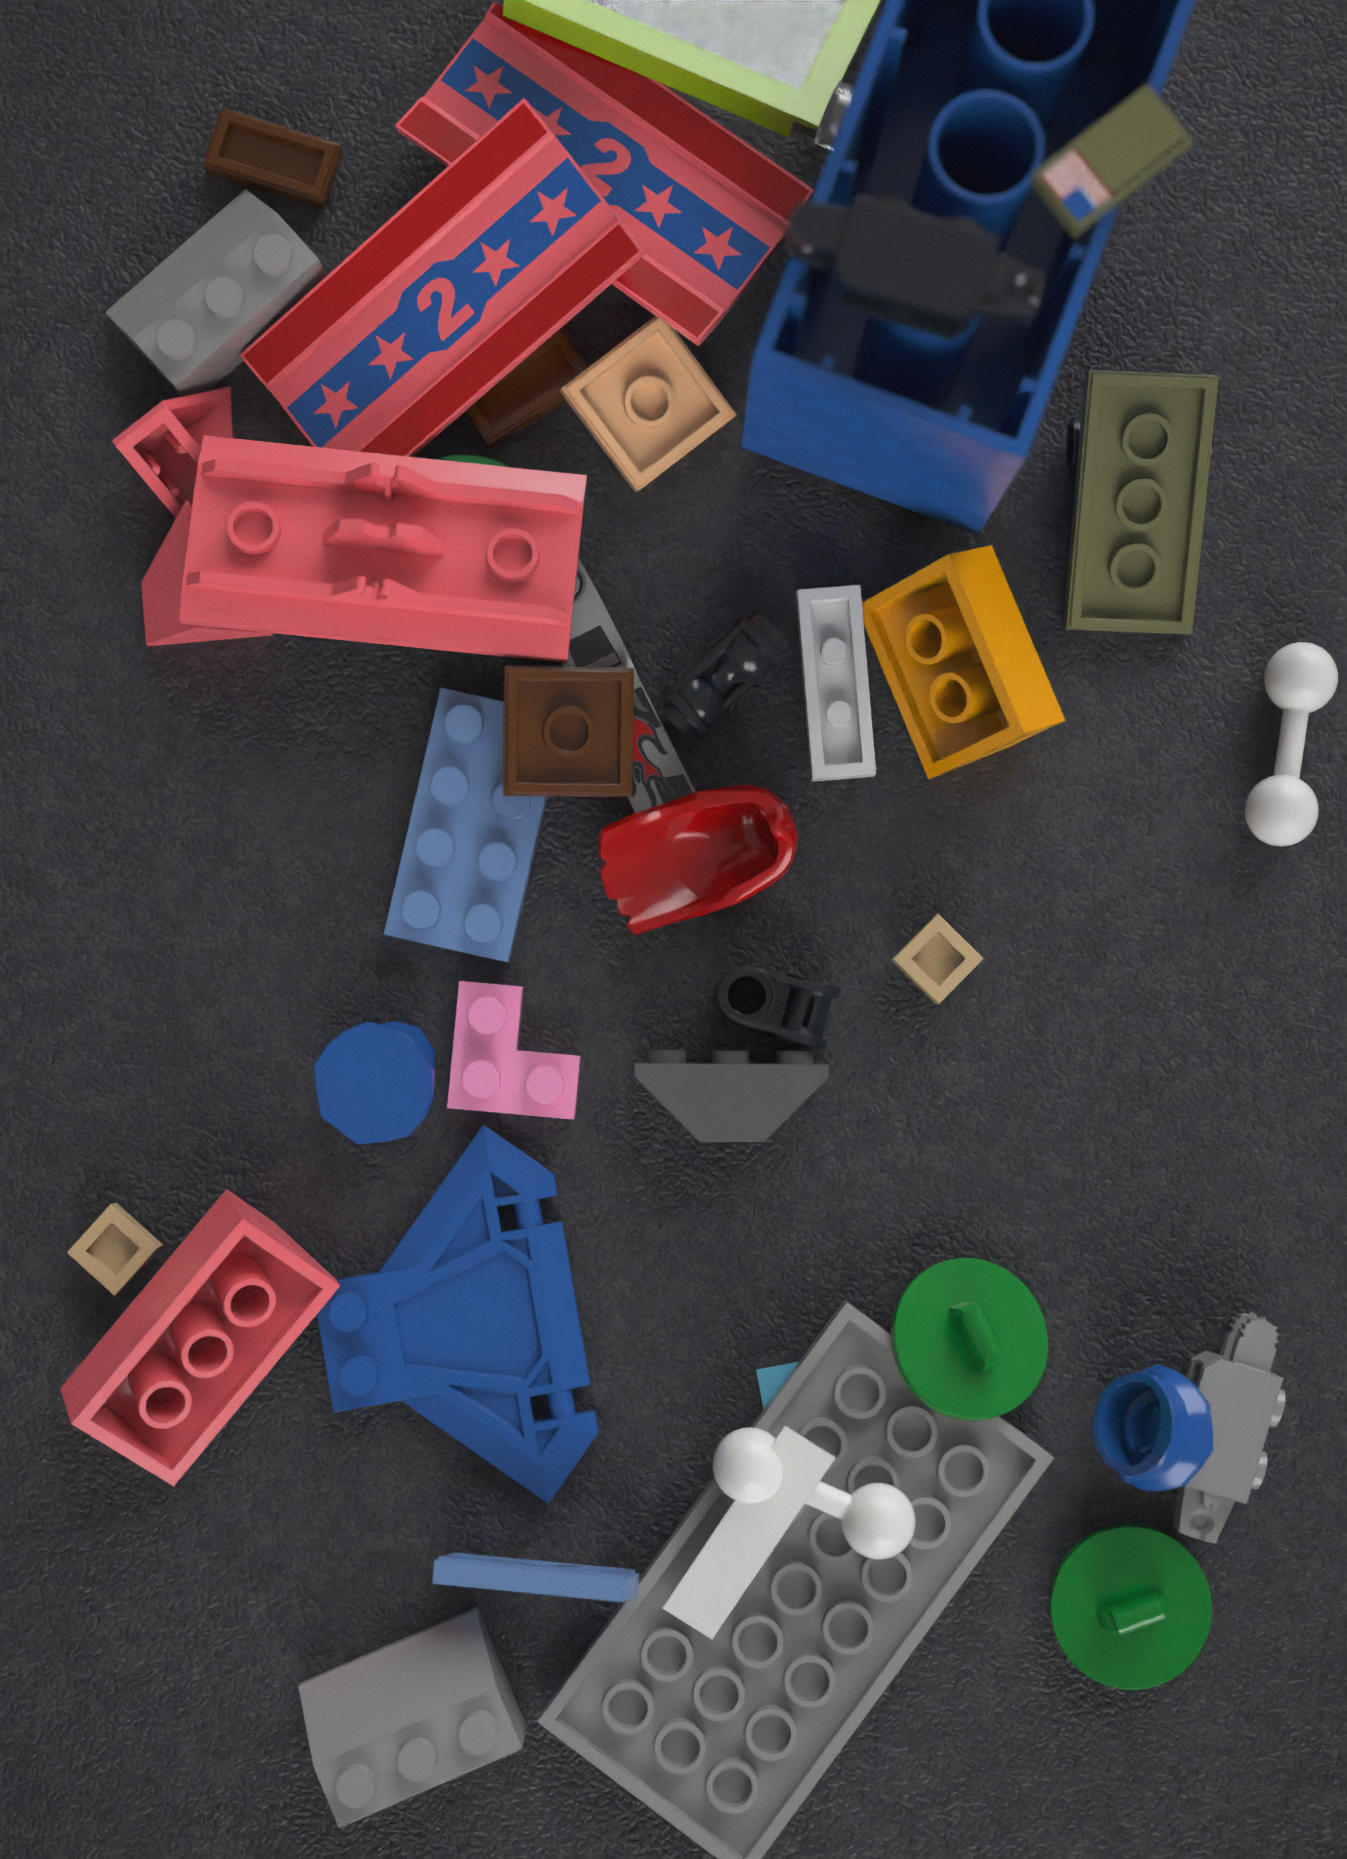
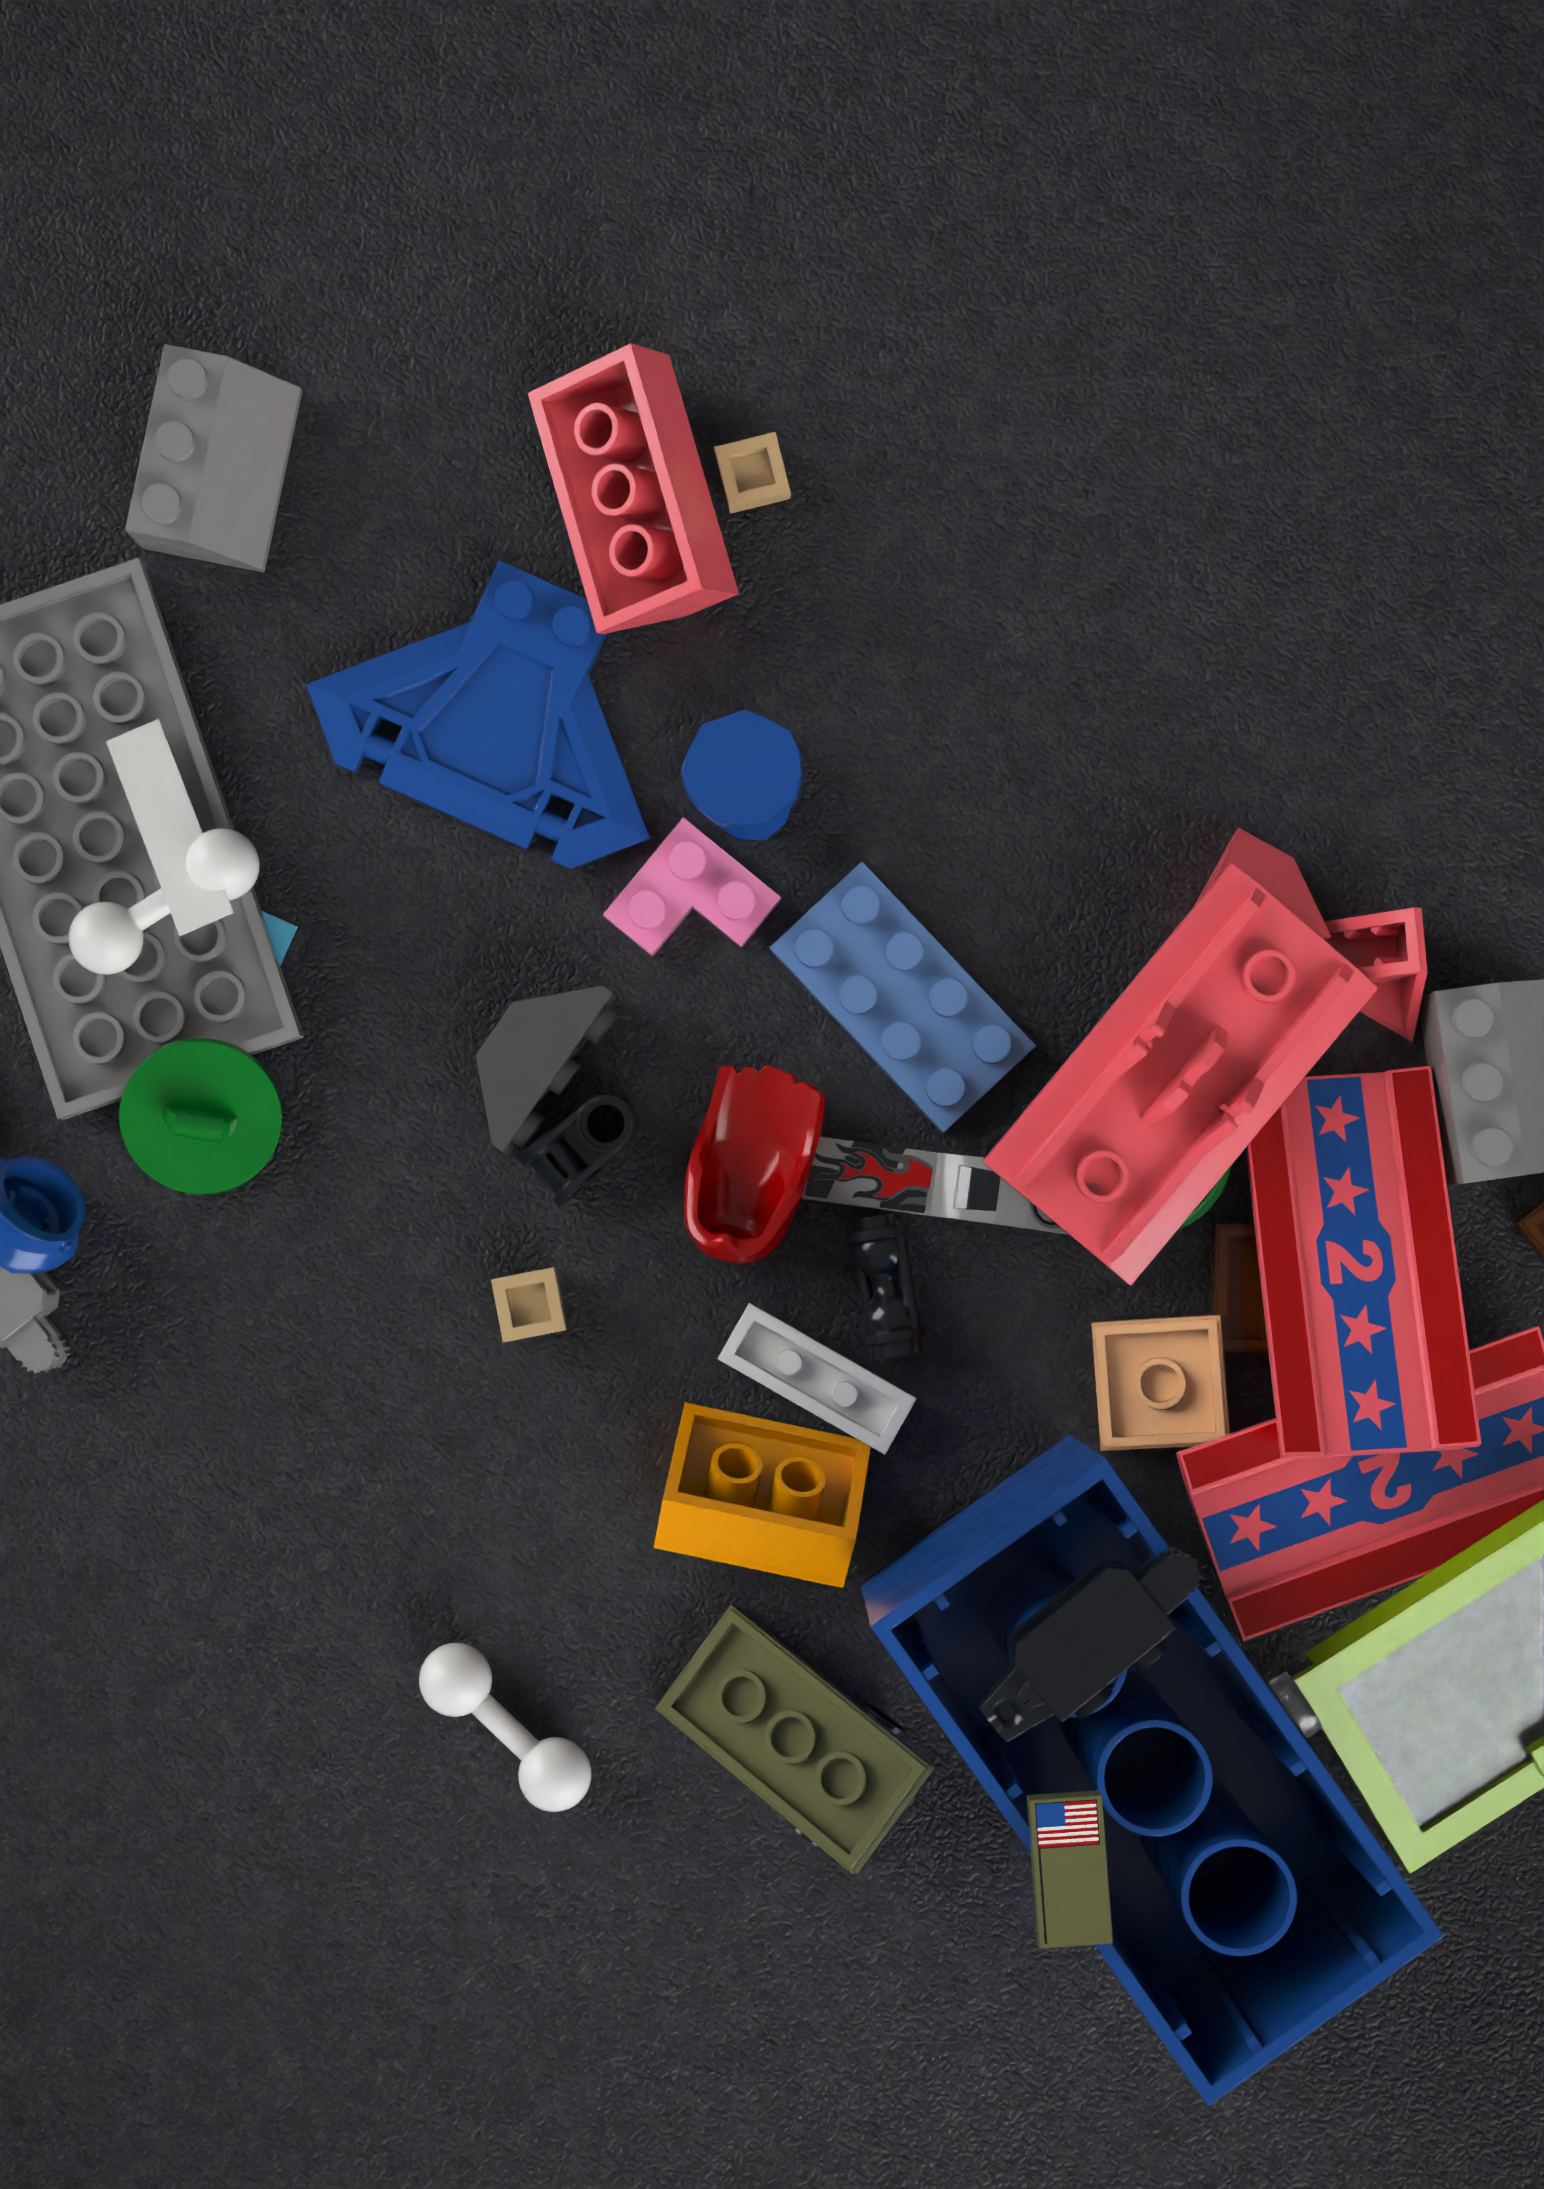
camera: 130 degrees right, 0 degrees up
(536, 1577) = (253, 634): medium blue tile -> none
(568, 731) = (925, 1124): reddish brown tile -> none

